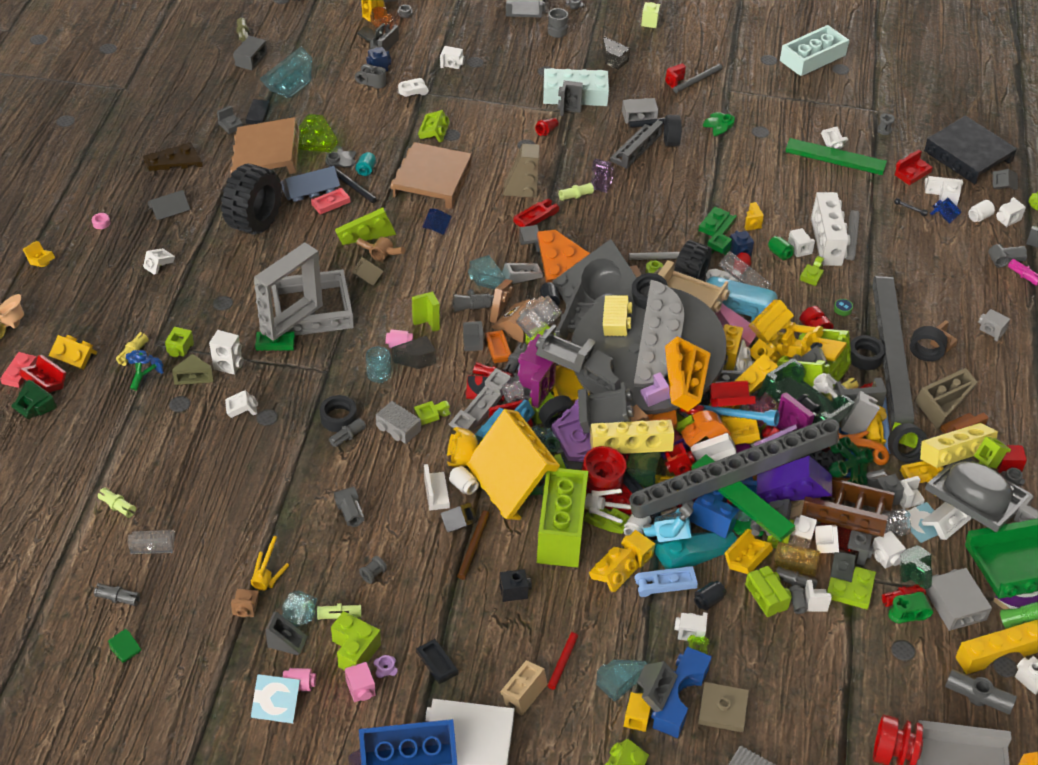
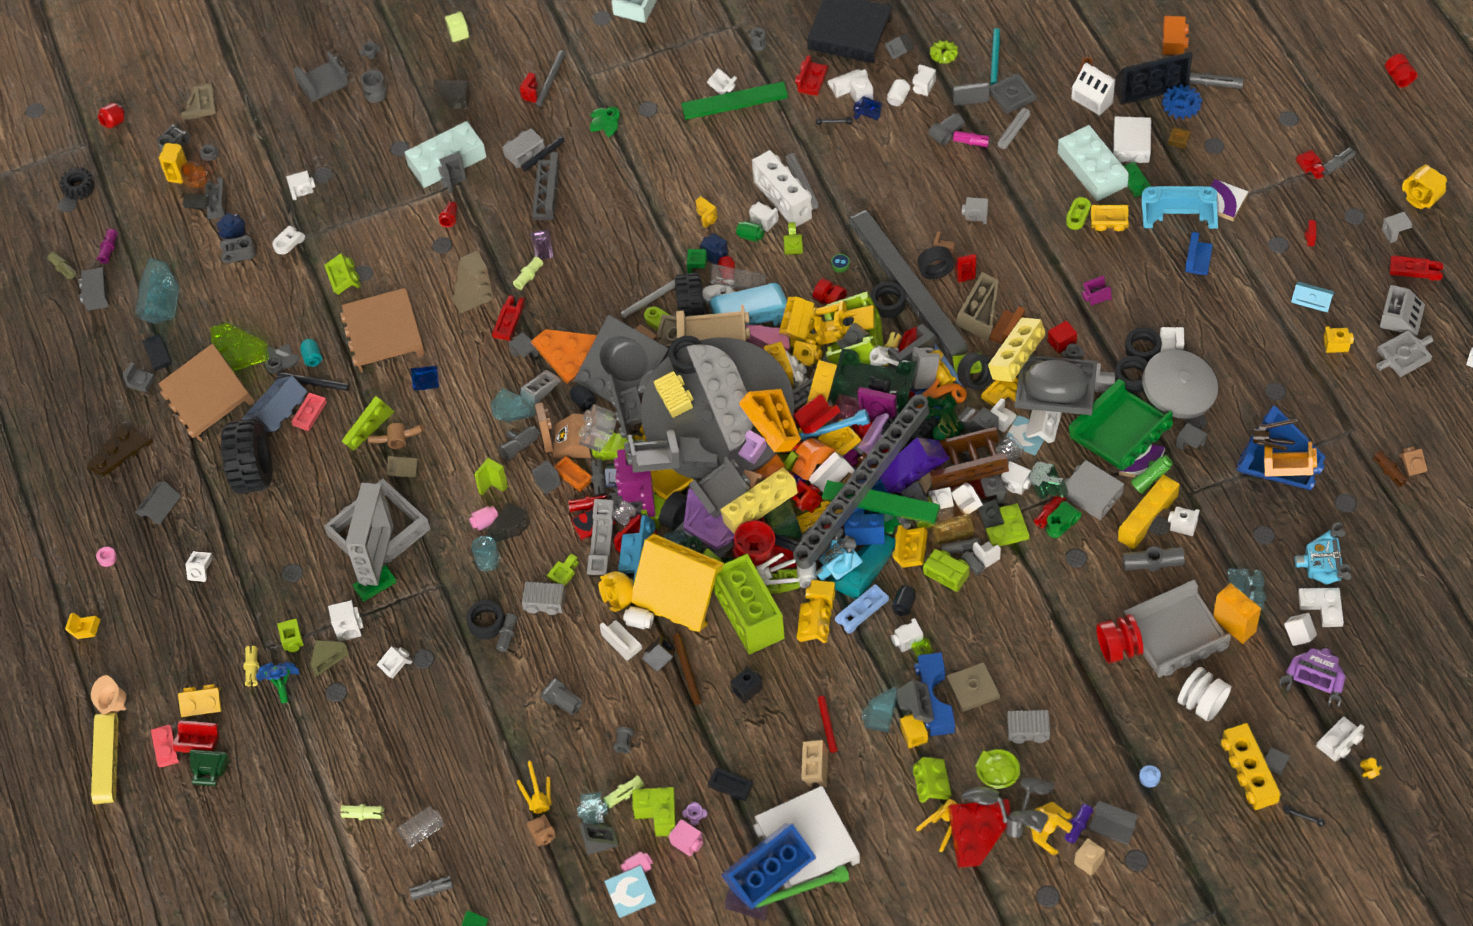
camera: 25 degrees left, 10 degrees up
(283, 33) = (107, 246): none -> magenta pin
(672, 130) = (572, 156): black tyre -> none
(717, 221) = (676, 234): green plate -> none
(953, 363) = (965, 268): none -> red slope
(991, 452) = (1044, 336): lime brick -> none

